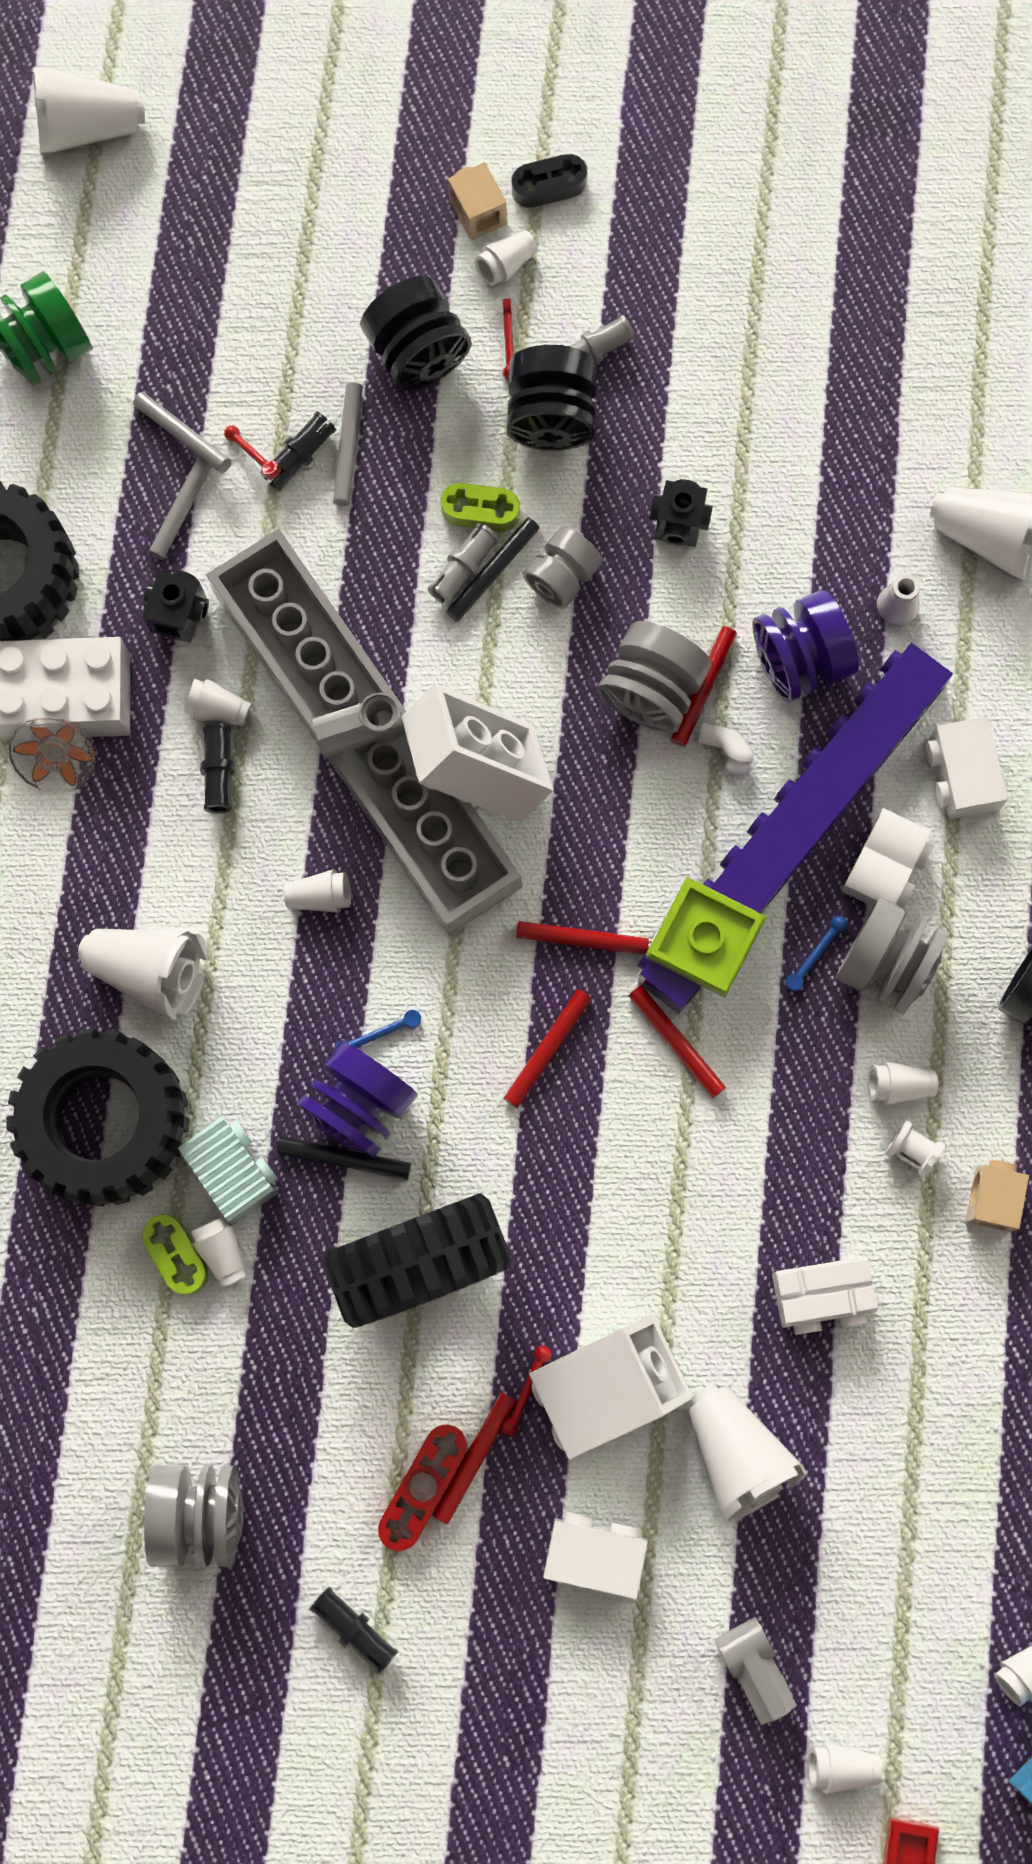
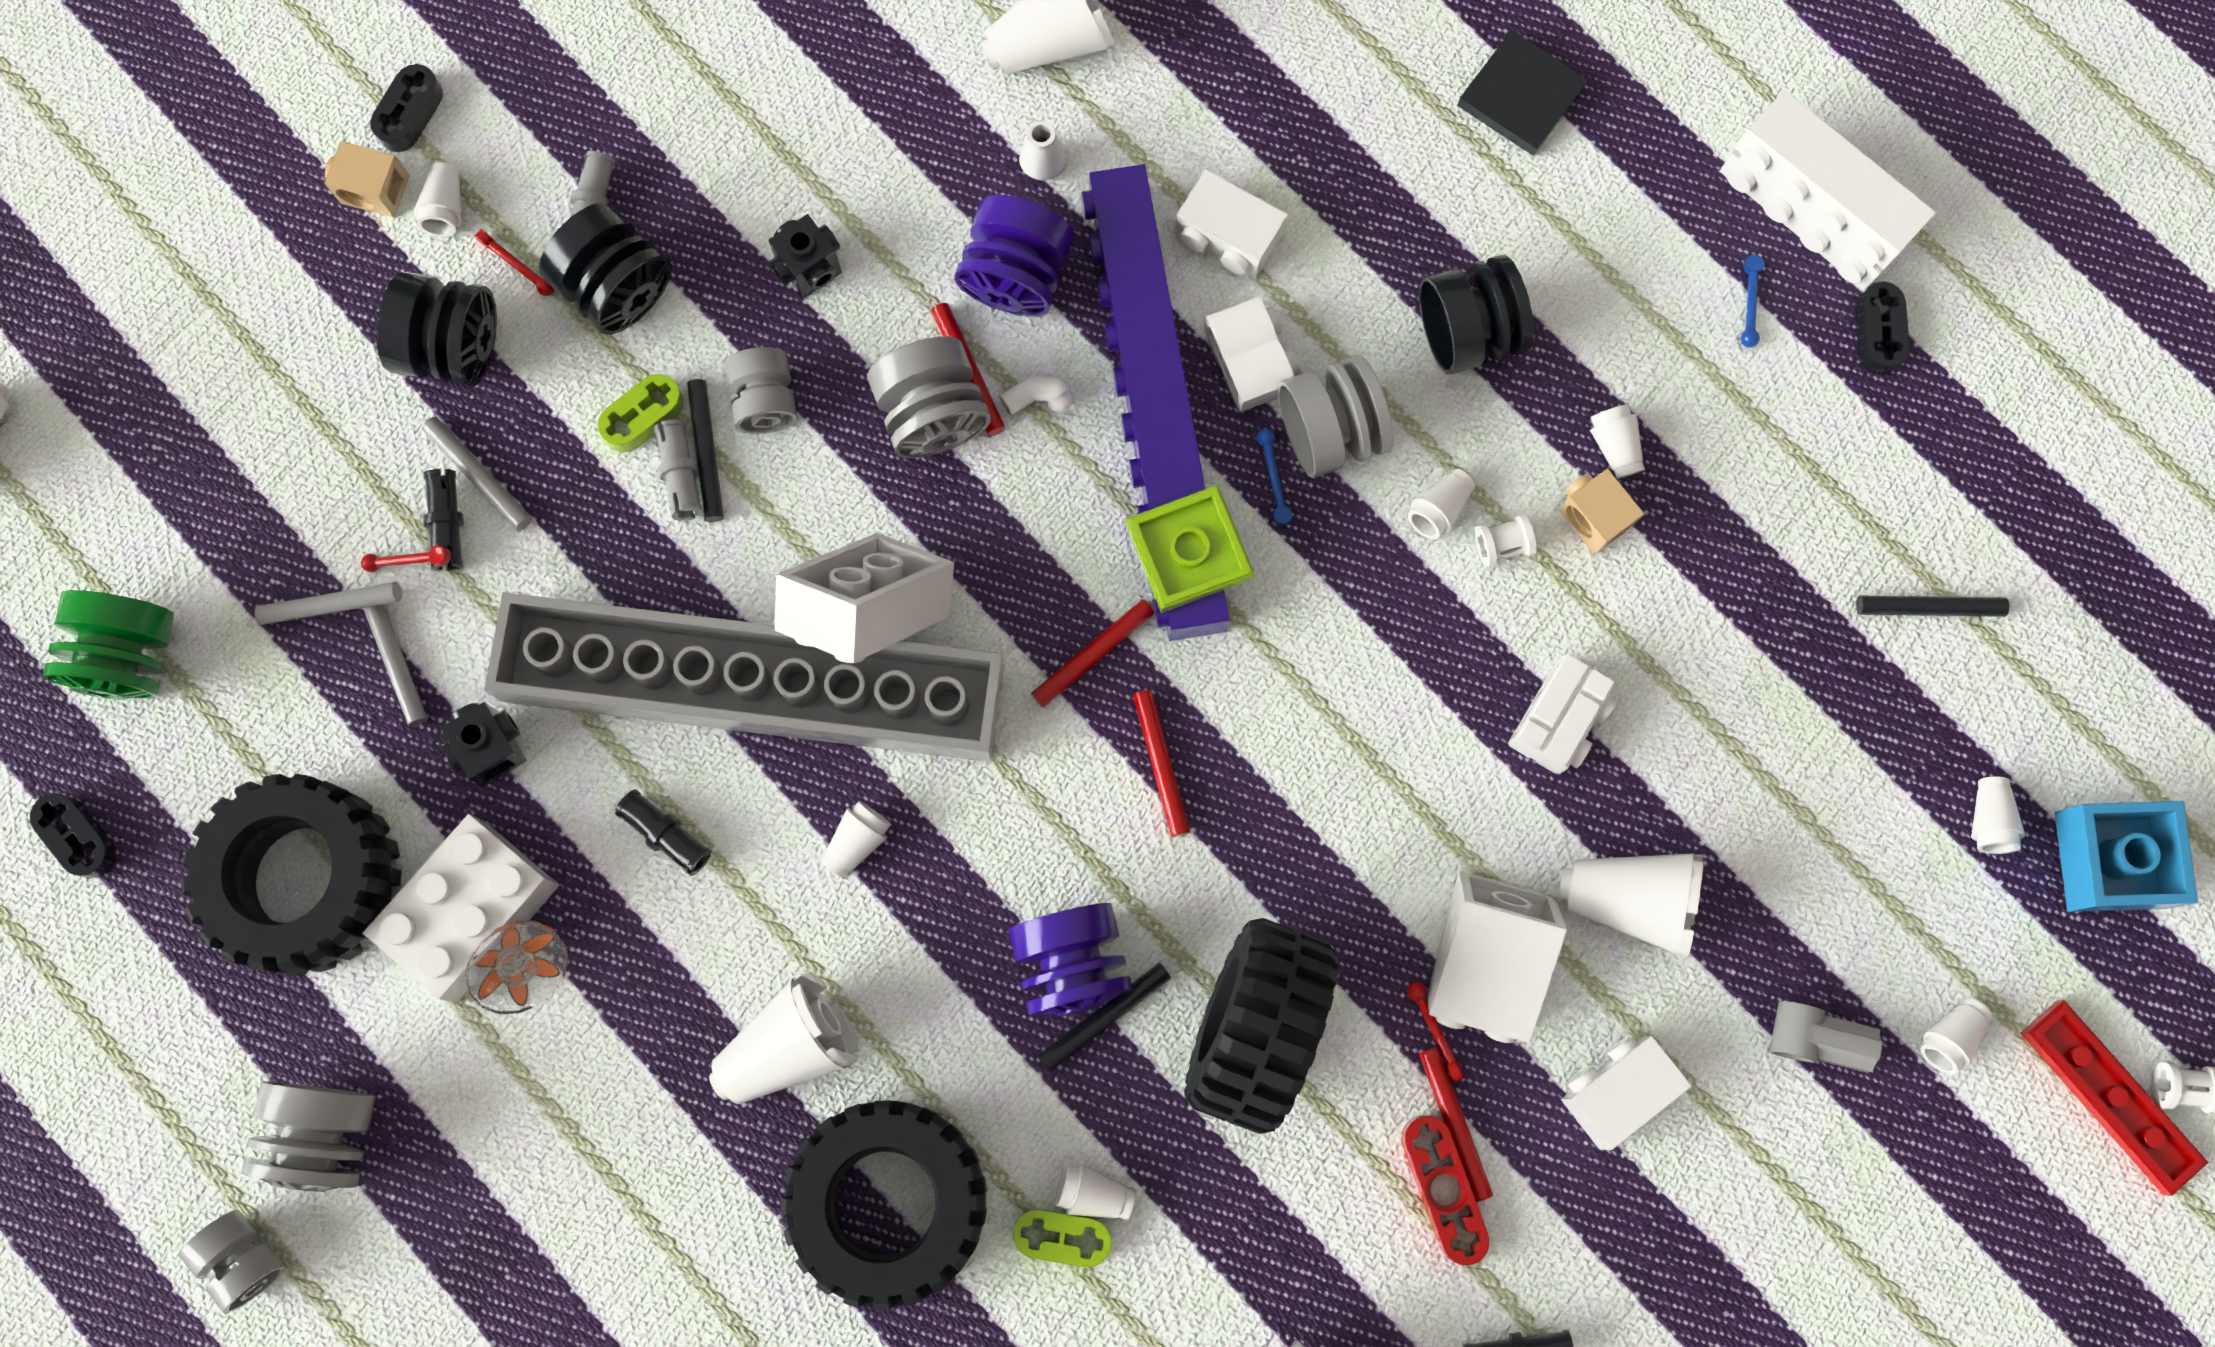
camera: 55 degrees left, 0 degrees up
(216, 704) = (605, 784): white cone -> none
(229, 1170) = (1030, 1125): light aqua brick -> none
(353, 725) = (745, 679): light grey piece -> none
(411, 1019) = (1034, 856): blue hinge -> none
(677, 1041) = (1249, 652): red bar -> none

